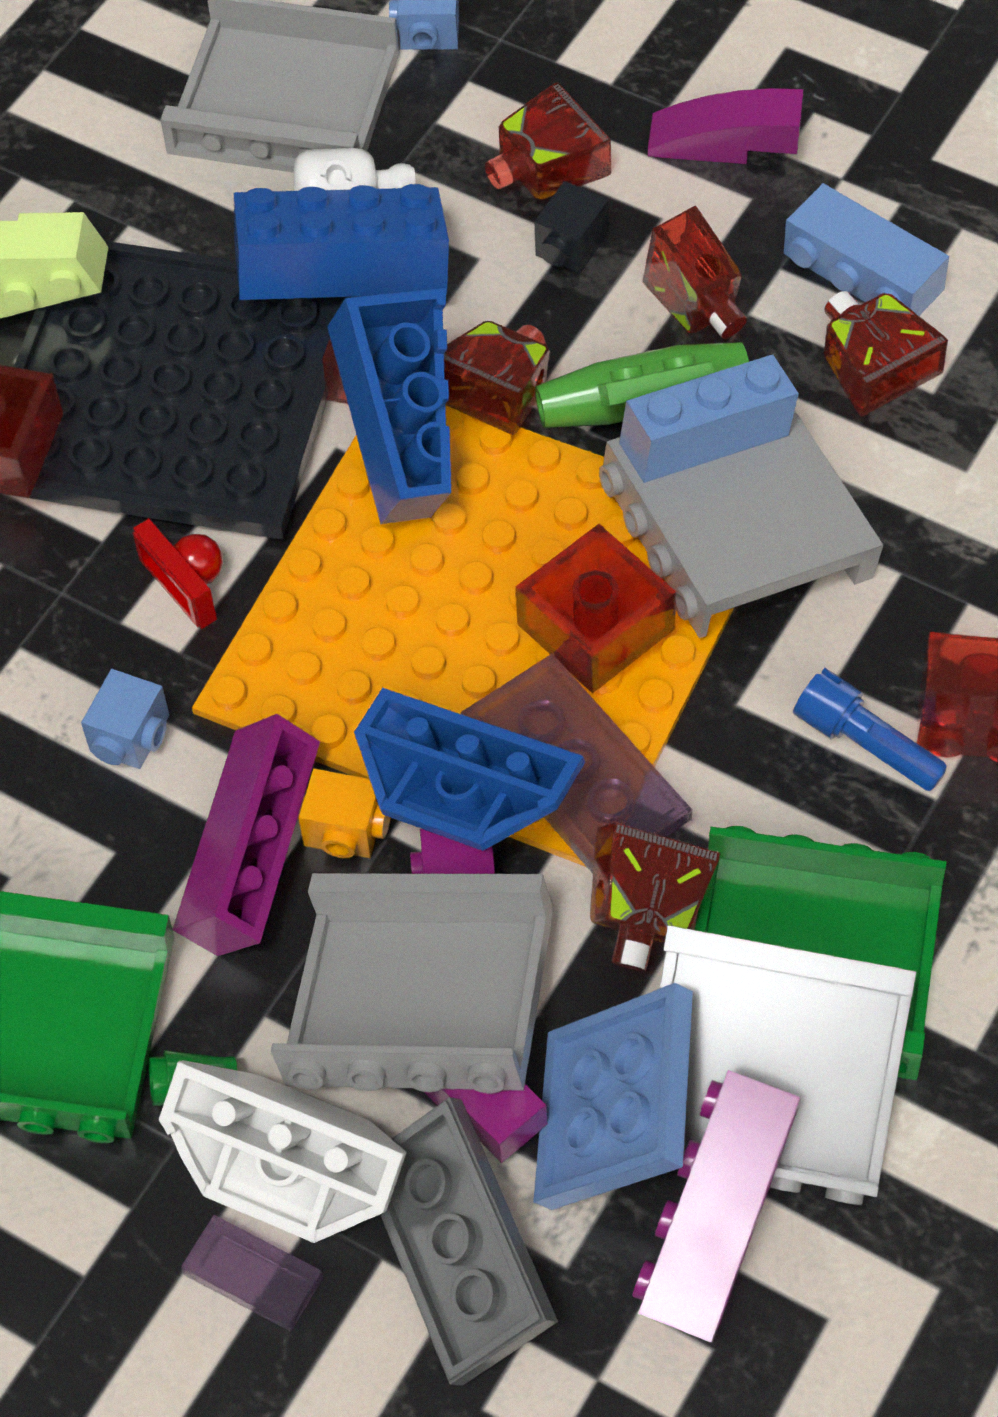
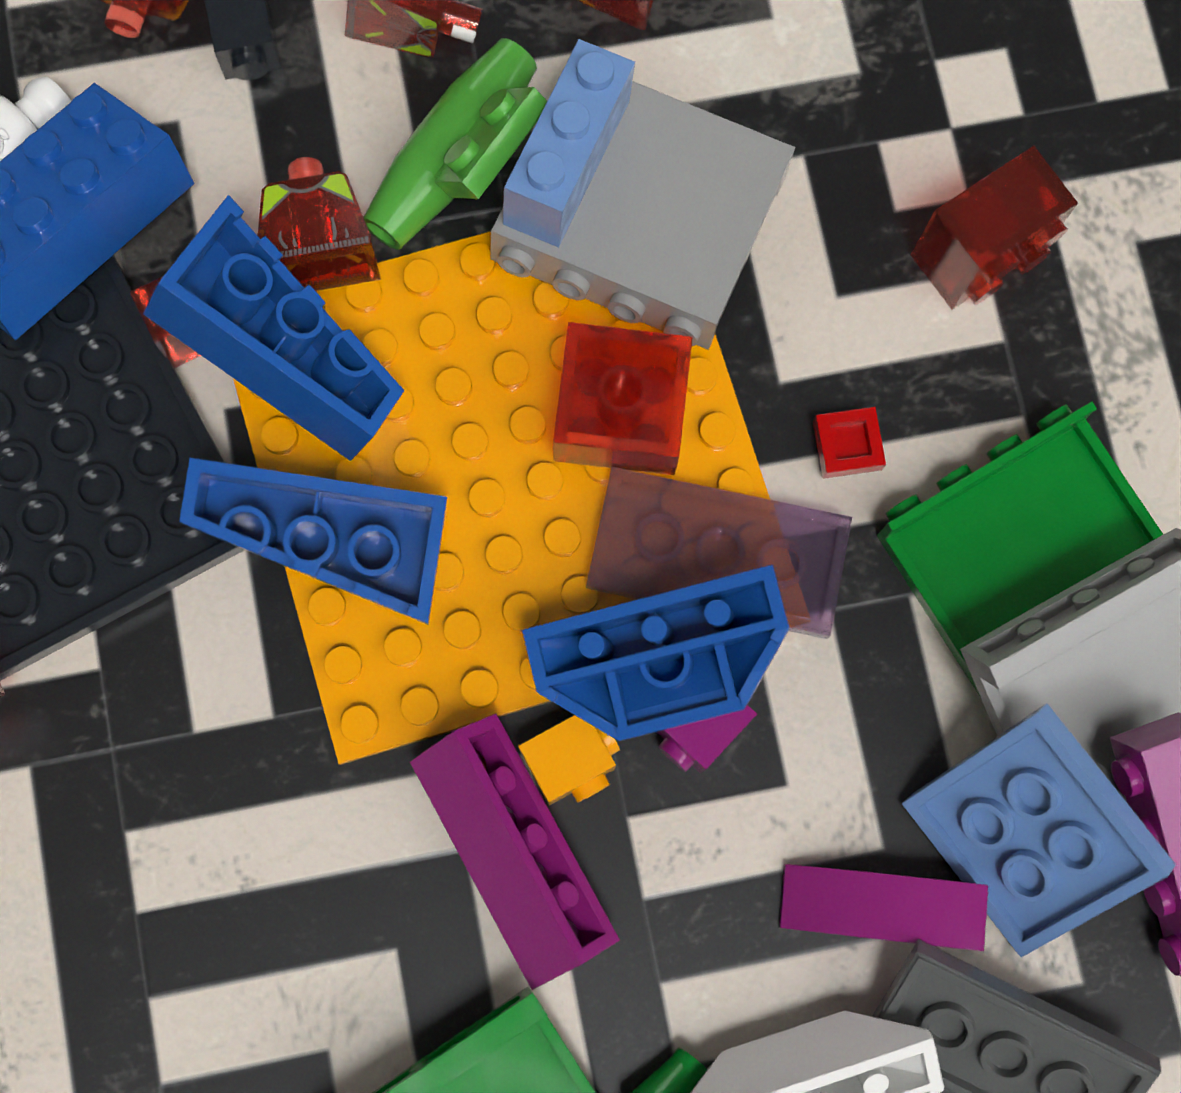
camera: 50 degrees left, 20 degrees up
(126, 720) = (300, 830): medium blue brick -> none
(182, 569) = (210, 642): red tile -> none
(329, 552) = (336, 531): none -> blue wedge
(419, 982) = (786, 869): light grey panel -> none
(644, 887) = (886, 621): clear red torso -> none
(743, 770) = (849, 442): none -> red plate
(838, 710) = (878, 326): blue piece -> none

